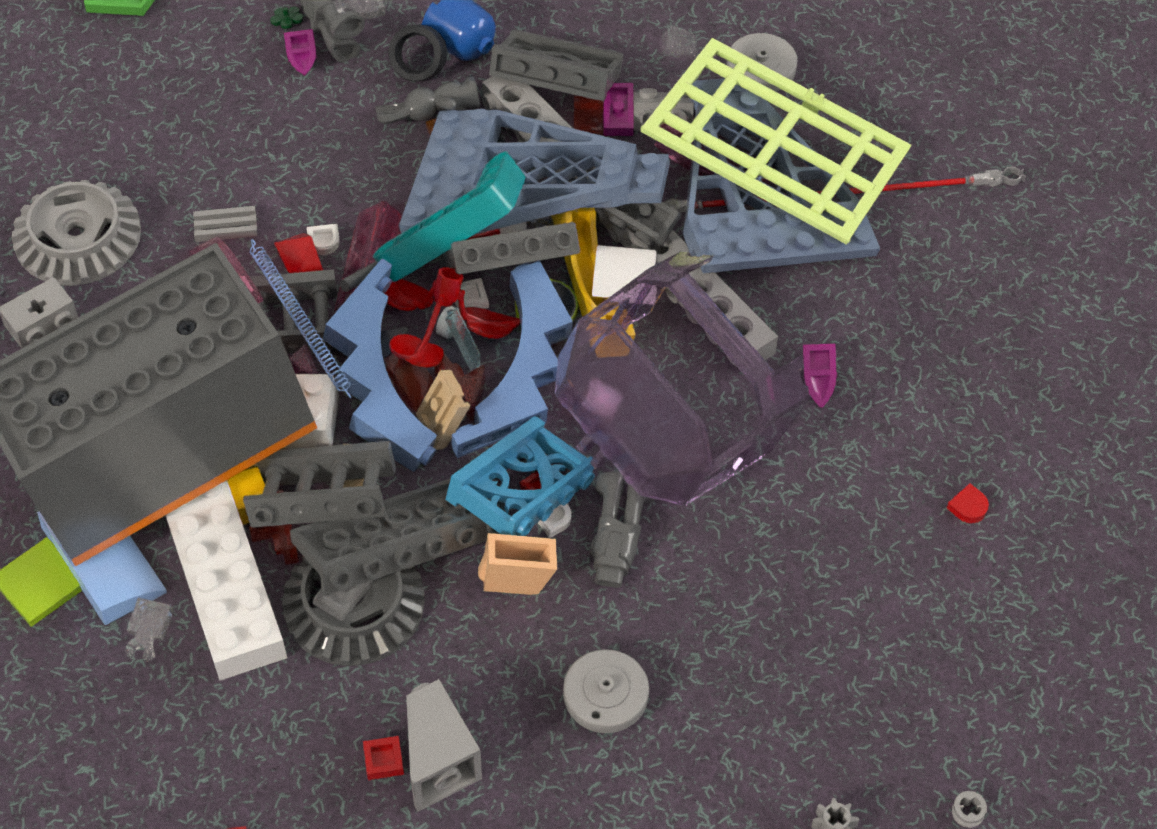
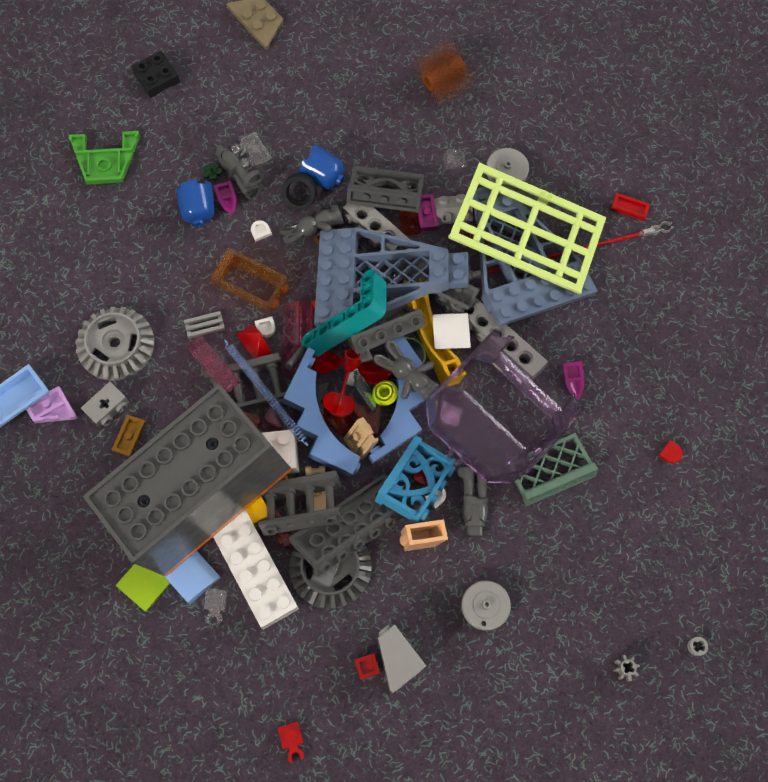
camera: 10 degrees left, 15 degrees up
(250, 48) = (196, 202): none -> blue cylinder
(296, 137) = (235, 259): none -> clear orange piece
(345, 104) = (260, 230): none -> white tile
(497, 351) = (386, 389): none -> neon yellow cone
(533, 310) = (405, 370): none -> dark grey animal
(765, 521) = (562, 481): none -> sand green fence
(957, 141) = (630, 206): none -> red tile

